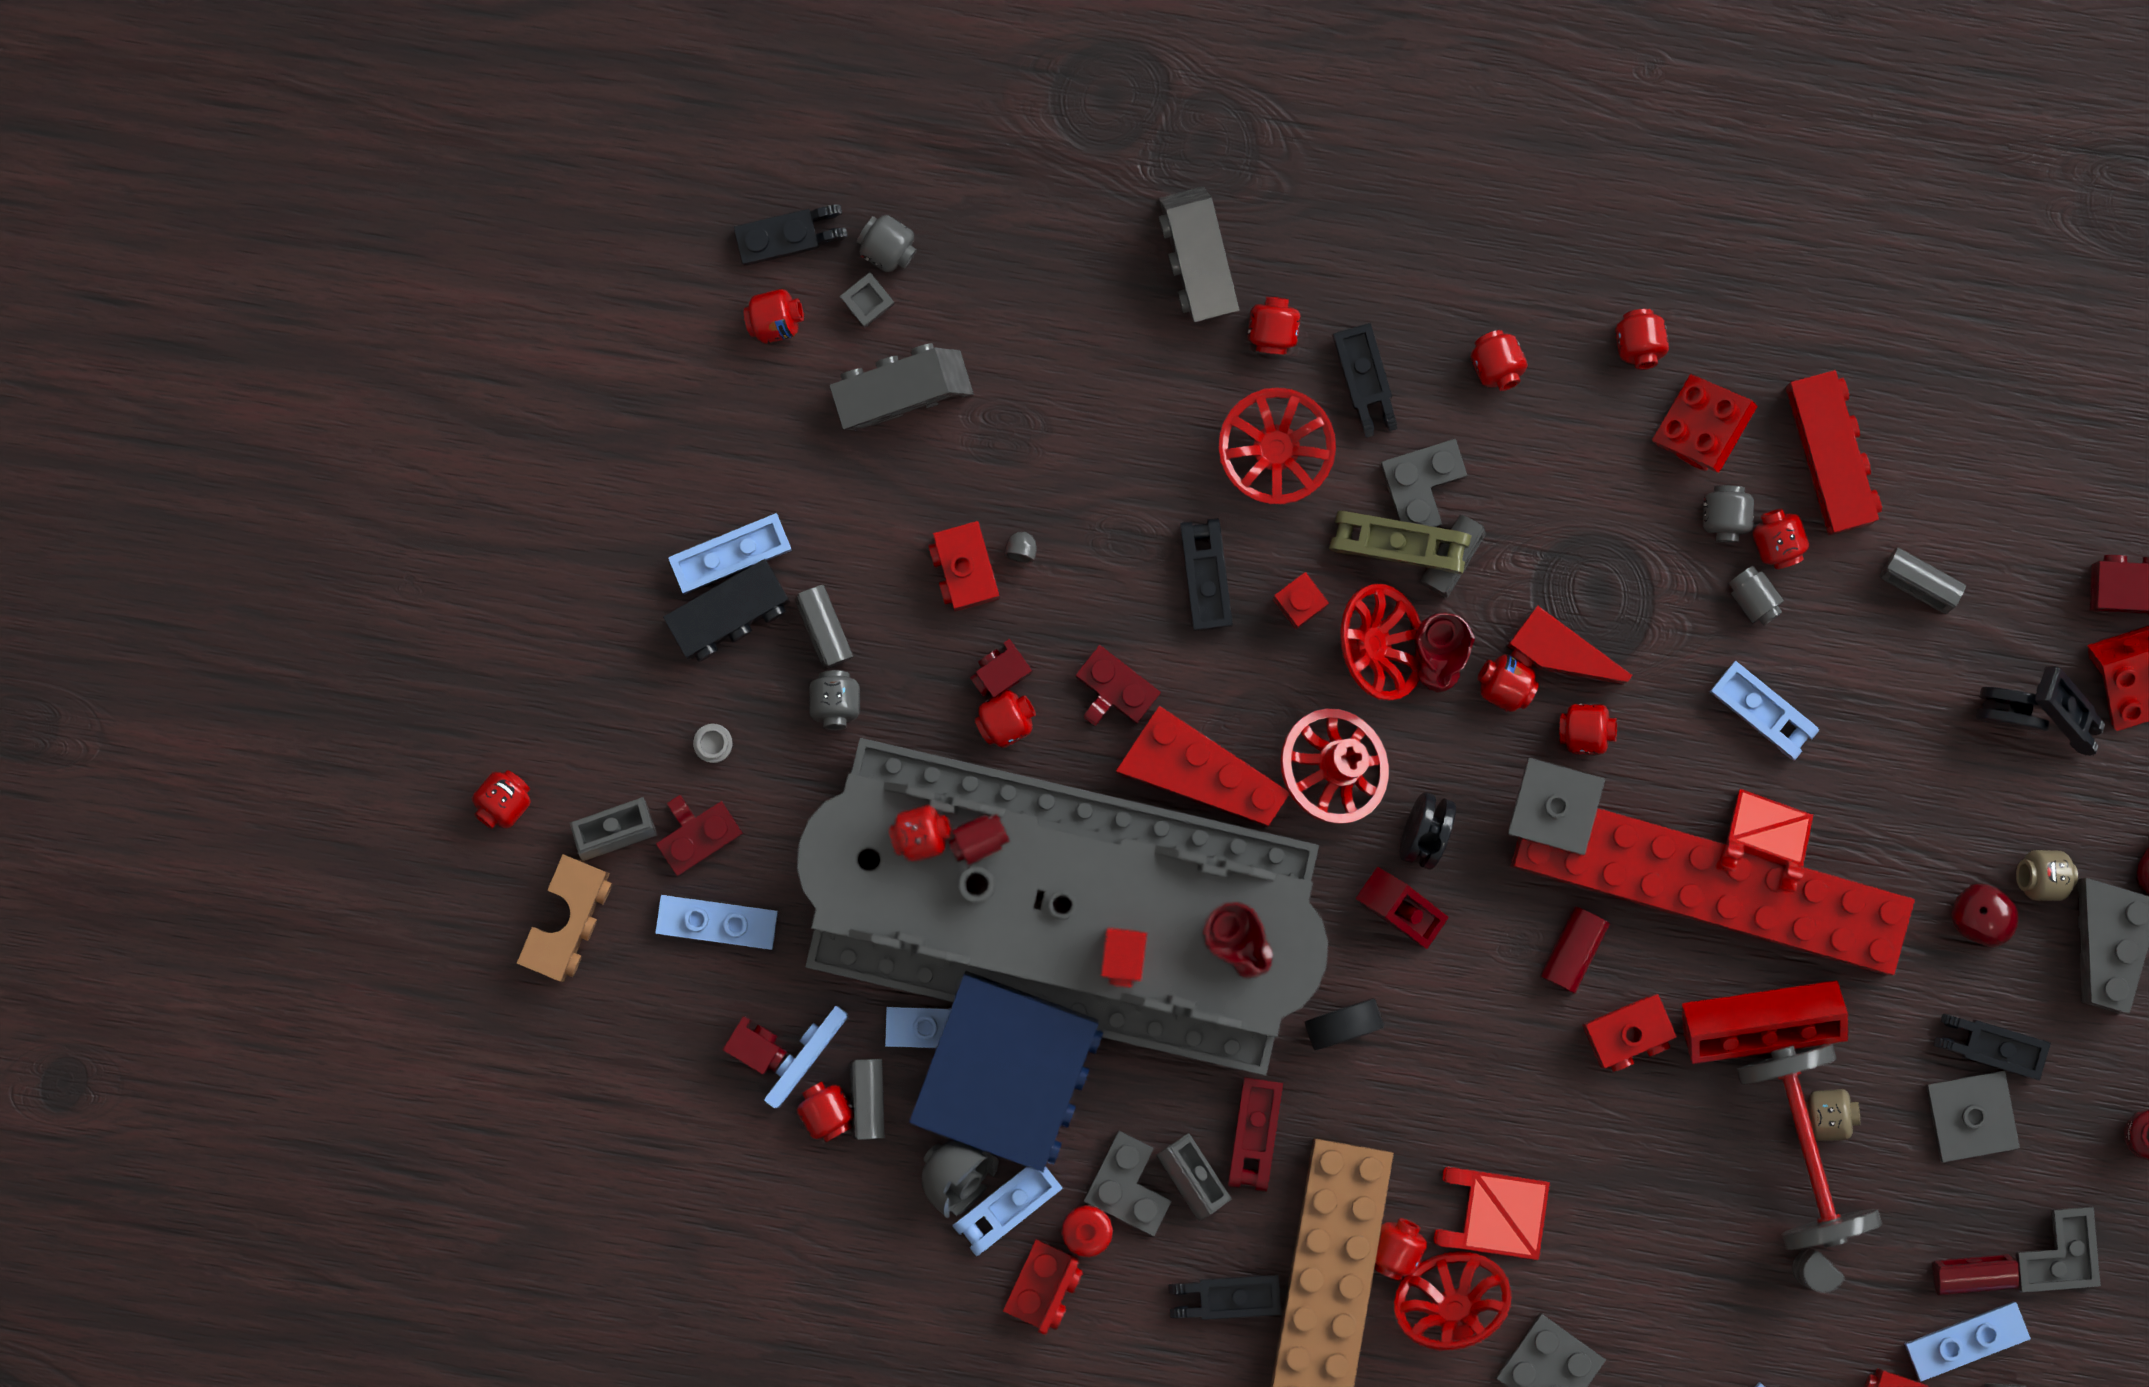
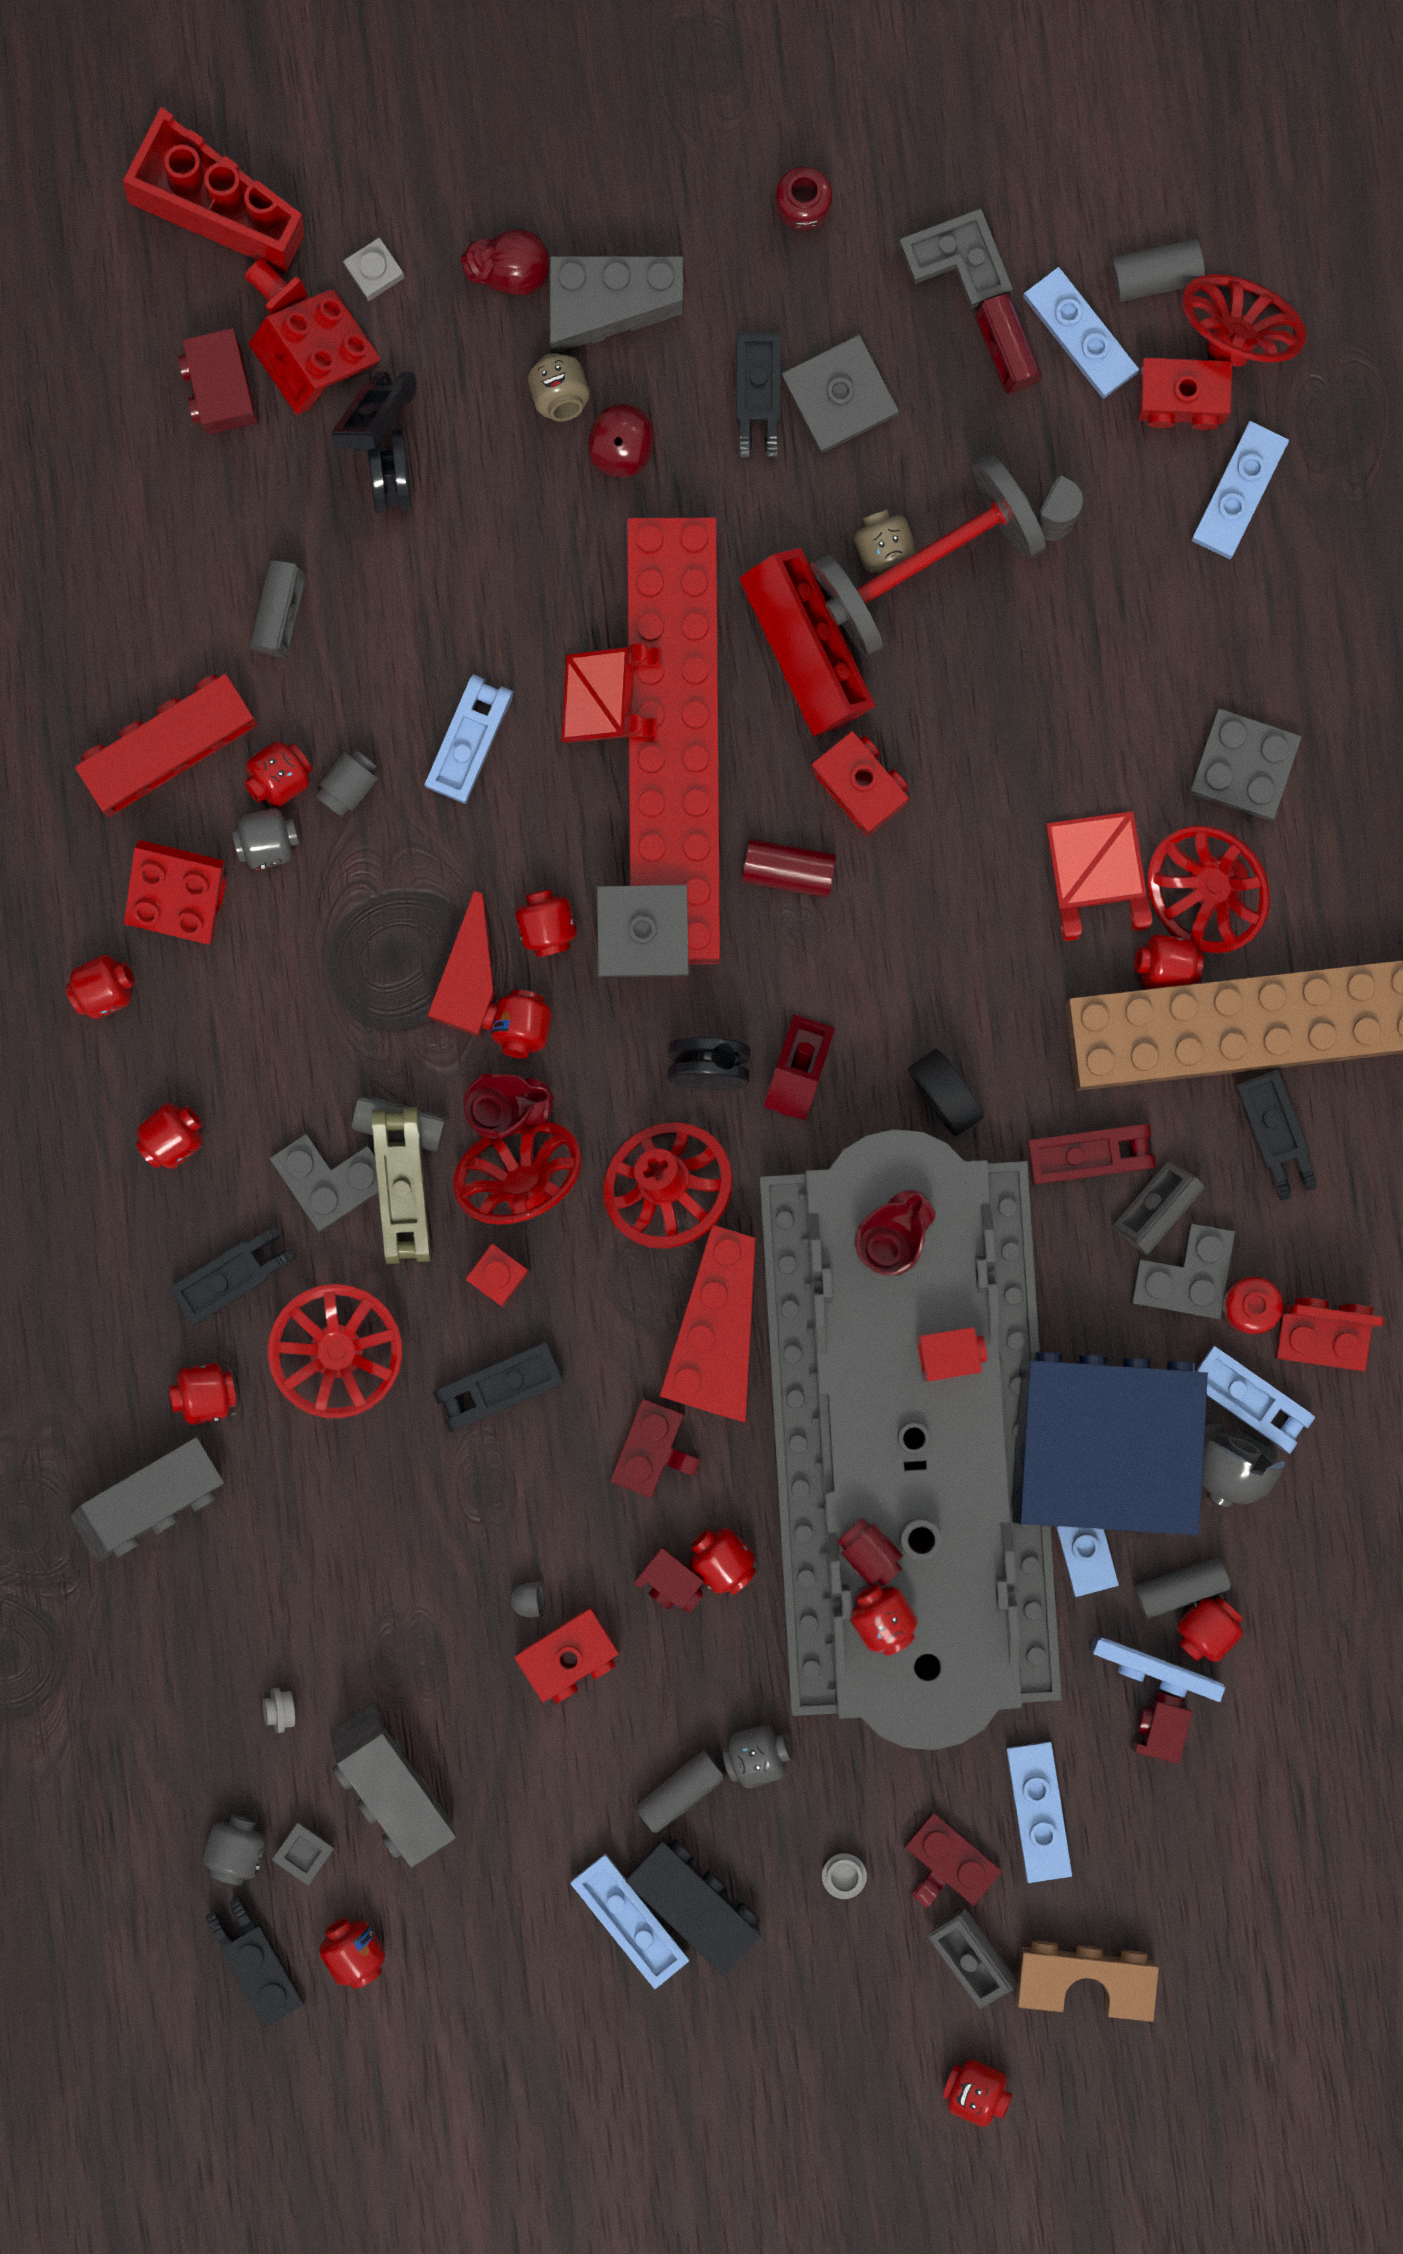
camera: 105 degrees left, 0 degrees up
(991, 314) = (279, 1710): none -> light grey plate

